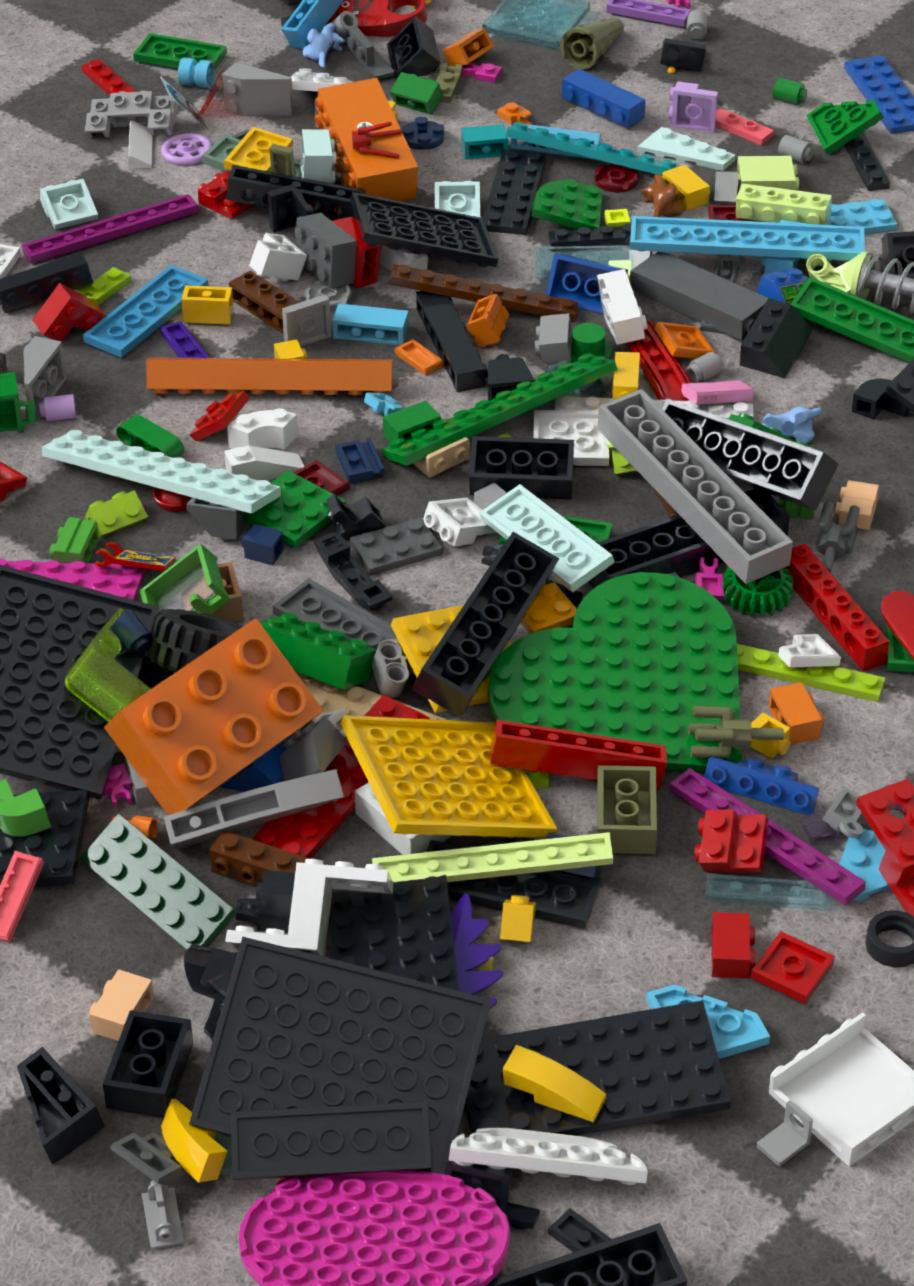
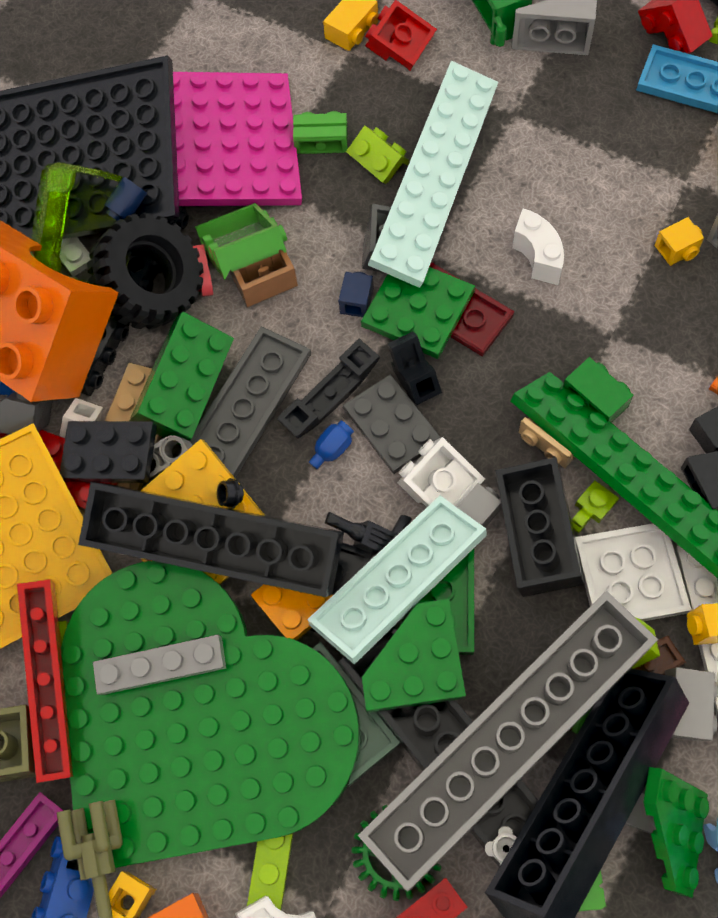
camera: 85 degrees right, 25 degrees up
(58, 408) = (528, 59): lavender brick -> none
(134, 558) = (302, 192): flag -> none
(149, 436) = (499, 149): green beam -> none
(182, 341) = (667, 148): dark purple tile -> none
(219, 415) = (545, 199): red plate -> none
(261, 462) = (487, 260): white slope -> none
(269, 374) = (638, 234): orange brick -> none
(359, 460) = (523, 353): dark blue plate -> none
(378, 686) = (108, 451): none -> black plate
(382, 403) = (629, 354): medium azure plate -> none
(403, 580) = (332, 443): none -> blue plant
(447, 596) = (229, 493): none -> black plate
(585, 678) = (159, 665): none -> light grey plate
(621, 532) = (417, 662): none -> green plate
(710, 580) = (387, 786): dark pink plate -> none
(771, 507) = (495, 847): none -> white plate

